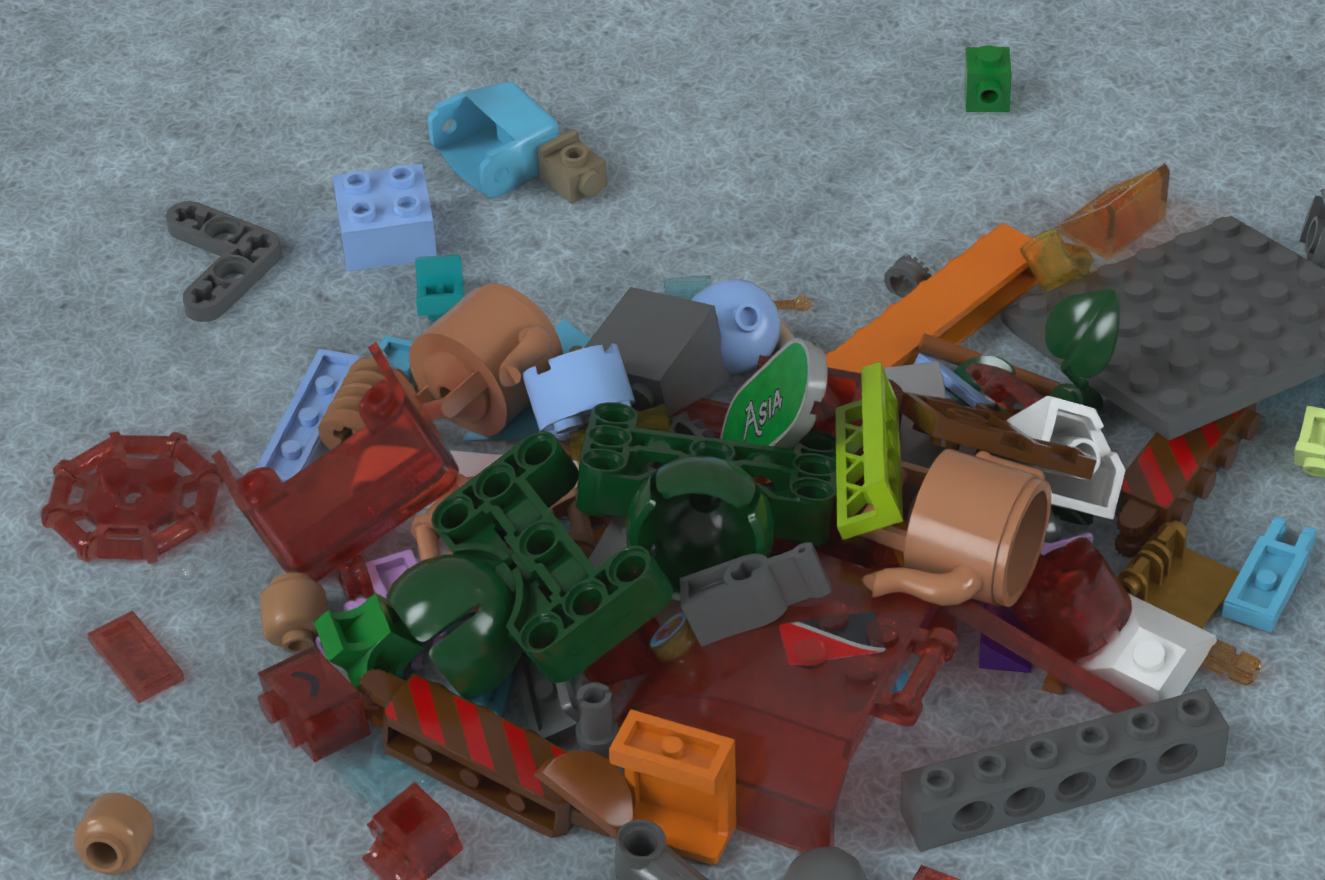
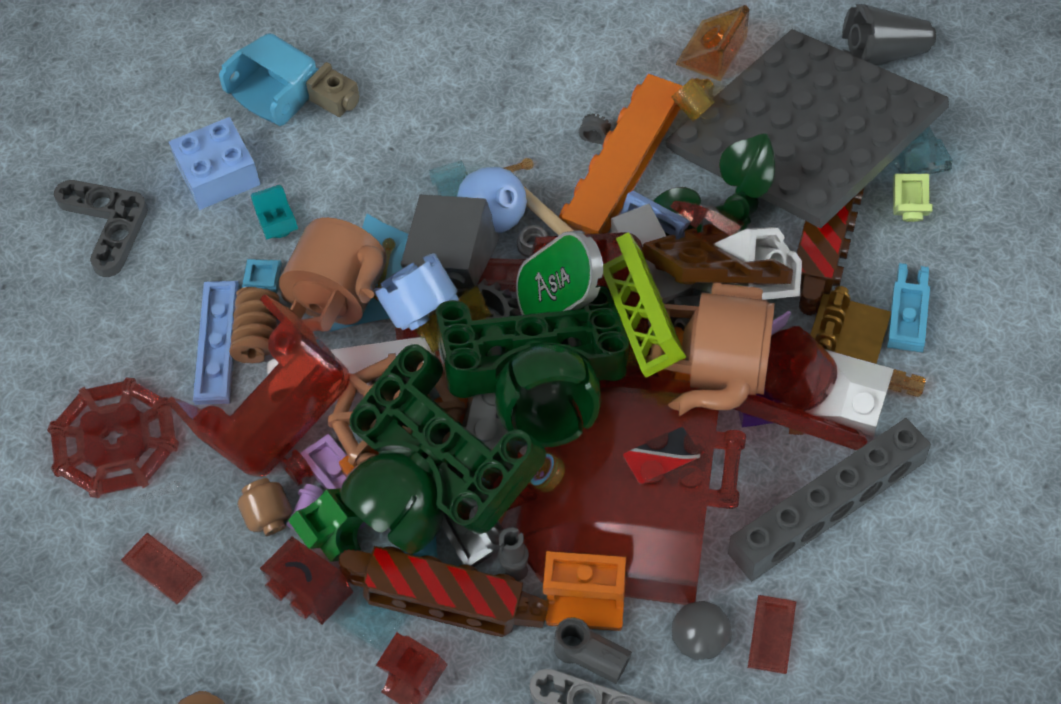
camera: 15 degrees left, 15 degrees up
(591, 787) = (526, 603): dark orange tile -> none
(750, 591) = (595, 435): dark grey piece -> none
(957, 355) = (657, 188): dark orange bar -> none

